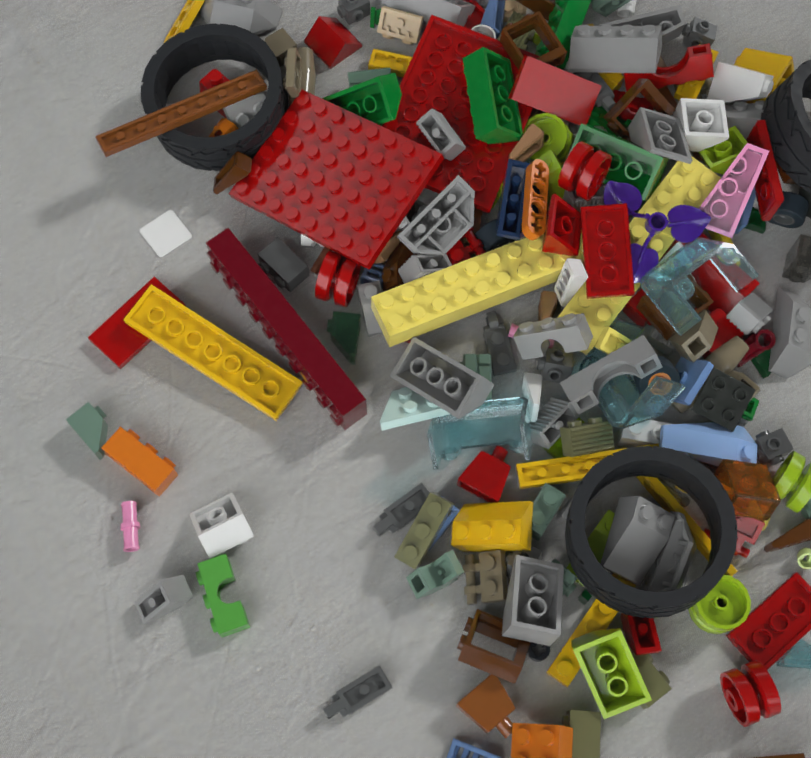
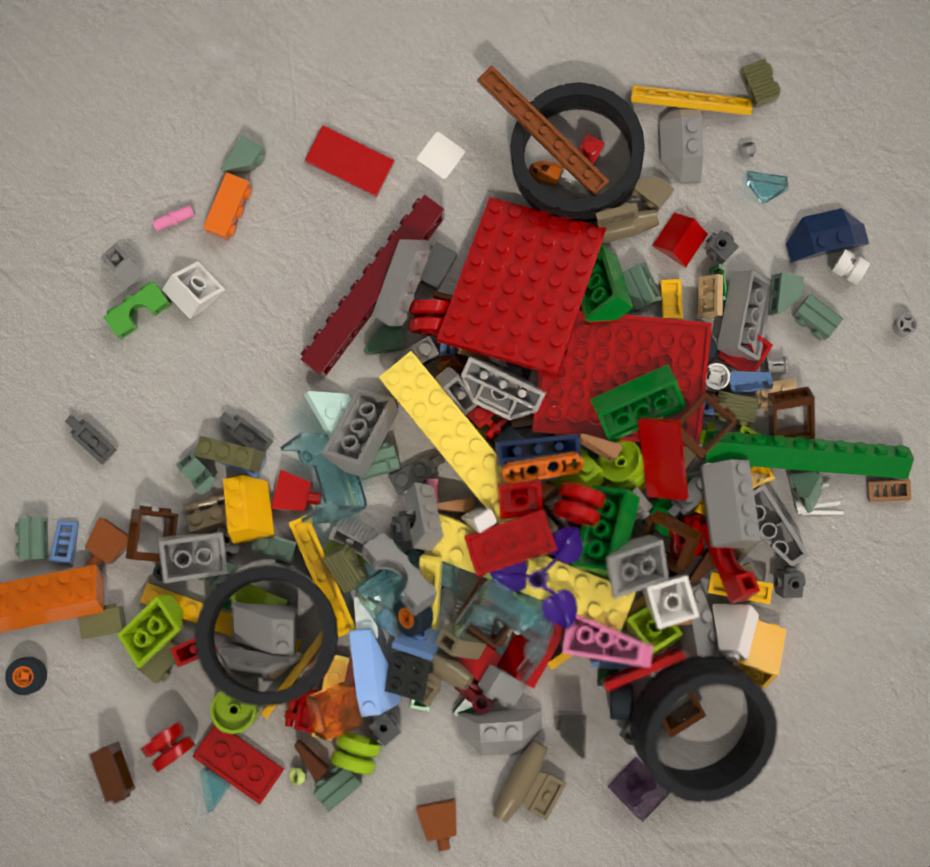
camera: 75 degrees right, 15 degrees up
(213, 352) = (337, 233): yellow plate -> none
(233, 171) = (508, 193): reddish brown slope -> none
(293, 286) = (401, 281): none -> light grey slope
(440, 134) = (582, 366): light grey brick -> none
(532, 391) = (379, 512): white slope -> none

